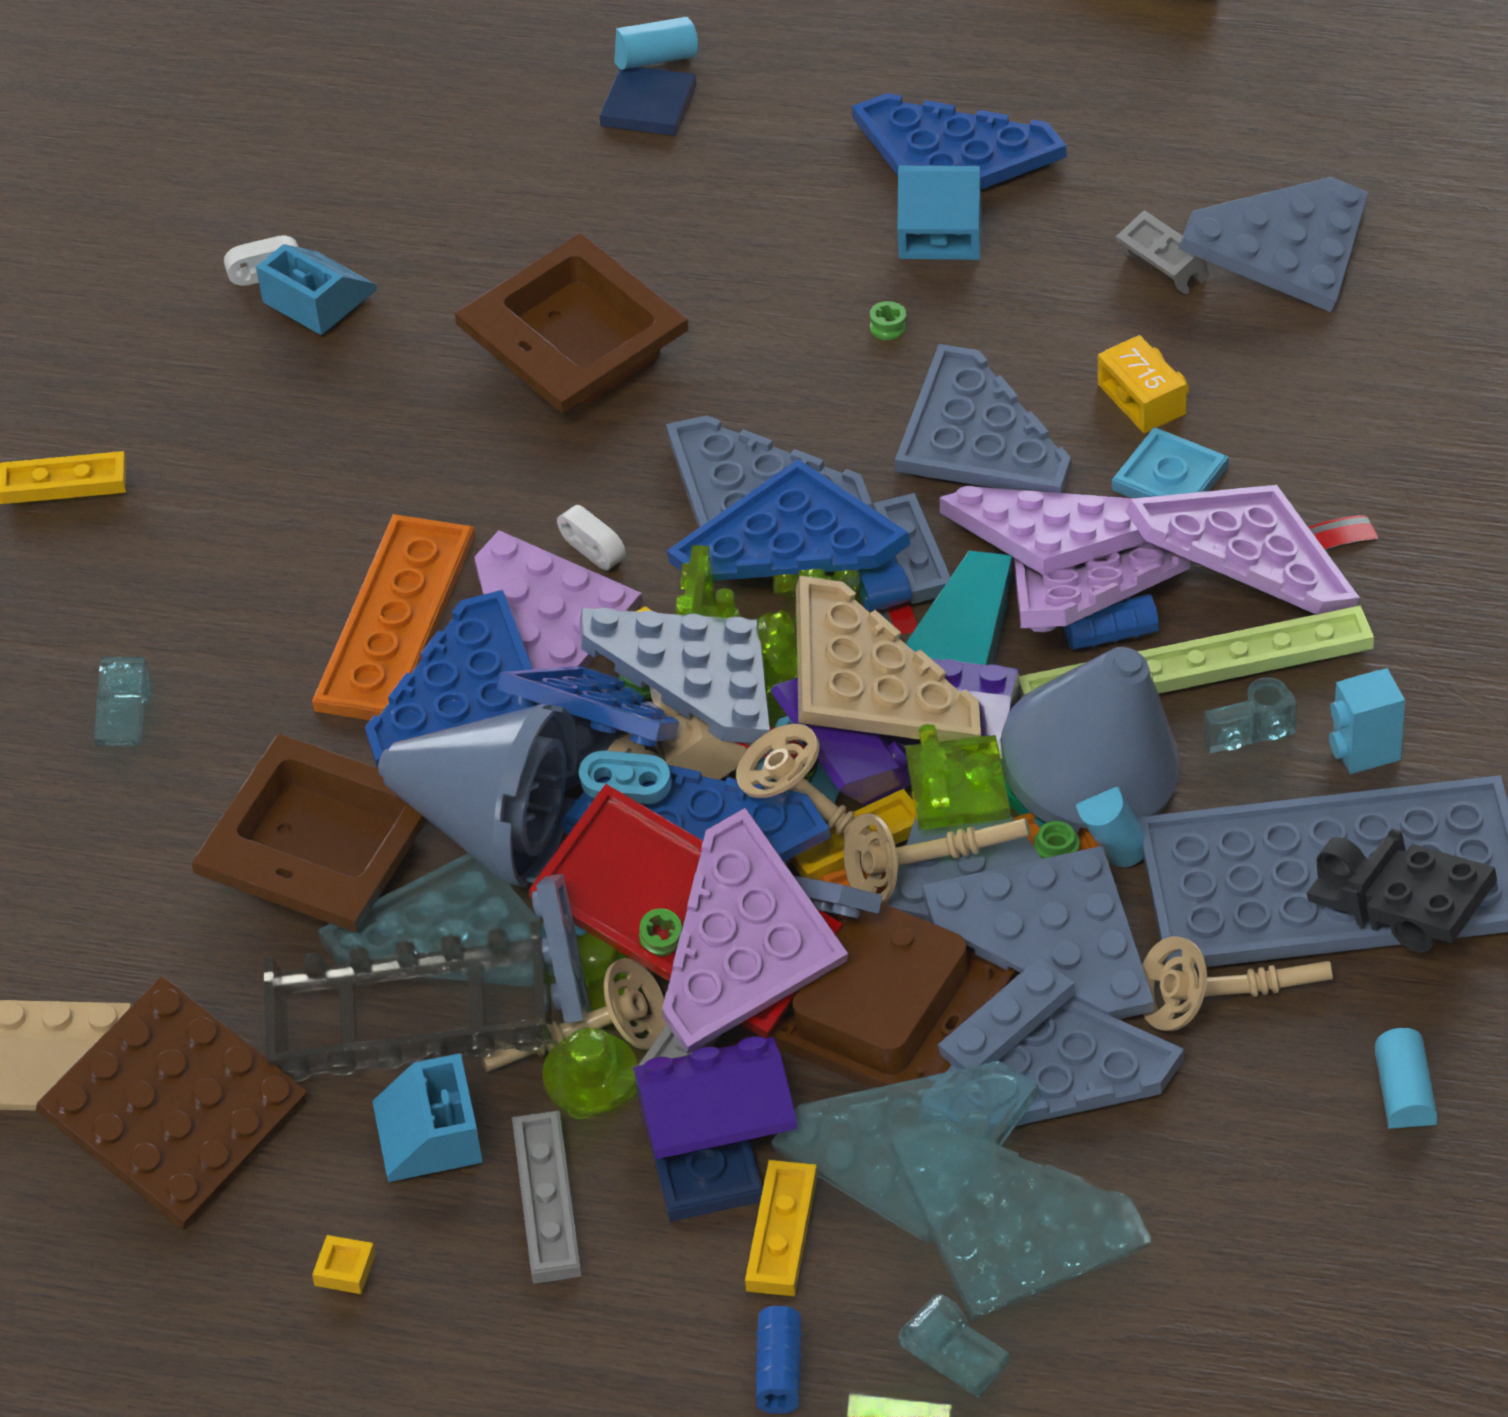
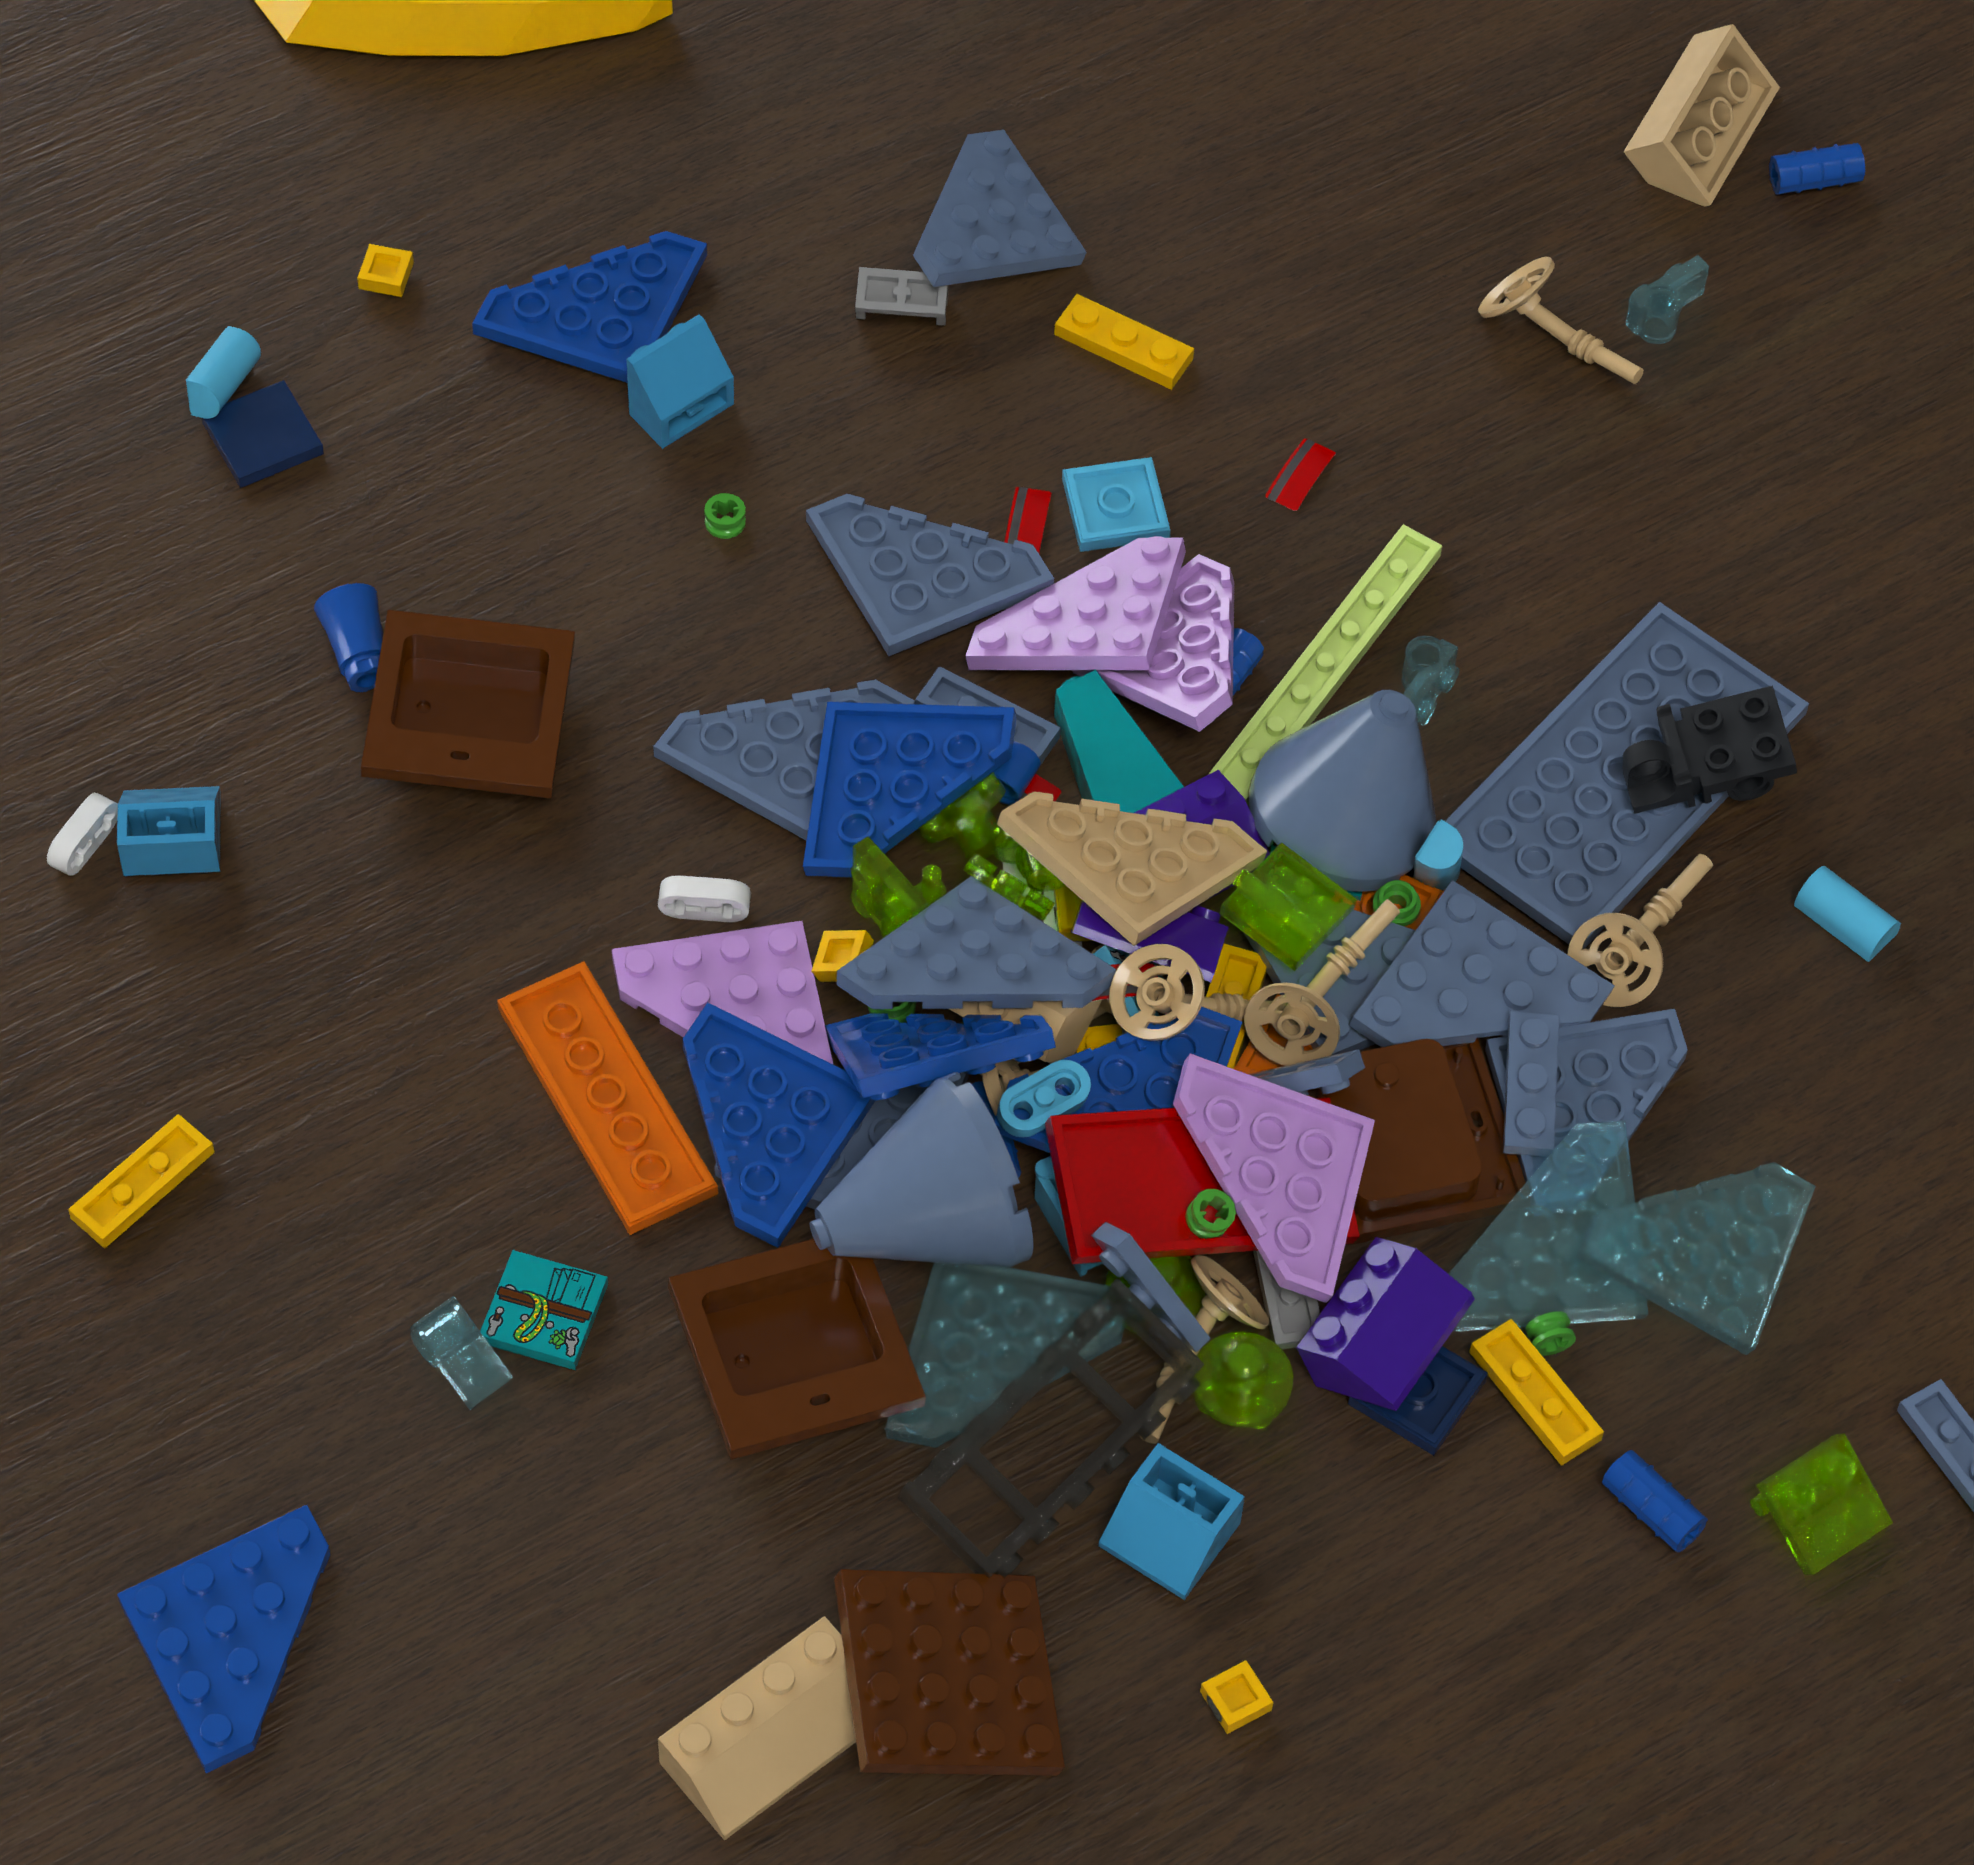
camera: 50 degrees left, 10 degrees up
(205, 715) = (544, 1309): none -> teal tile
(546, 1197) = (1321, 1511): light grey tile -> none
(560, 224) = (354, 631): none -> blue plant
(836, 46) = (385, 270): none -> yellow plate
(836, 1197) = (1551, 1333): none -> bright green bush
(946, 1343) = (1758, 1387): clear light blue plate -> none
(1096, 446) = (1028, 516): none -> red sticker
(1142, 383) = (1014, 435): yellow brick -> none
(1249, 537) = (1265, 524): lavender plate -> none
(1300, 375) = (1124, 341): none -> yellow plate
(1367, 721) = (1527, 624): medium azure brick -> none

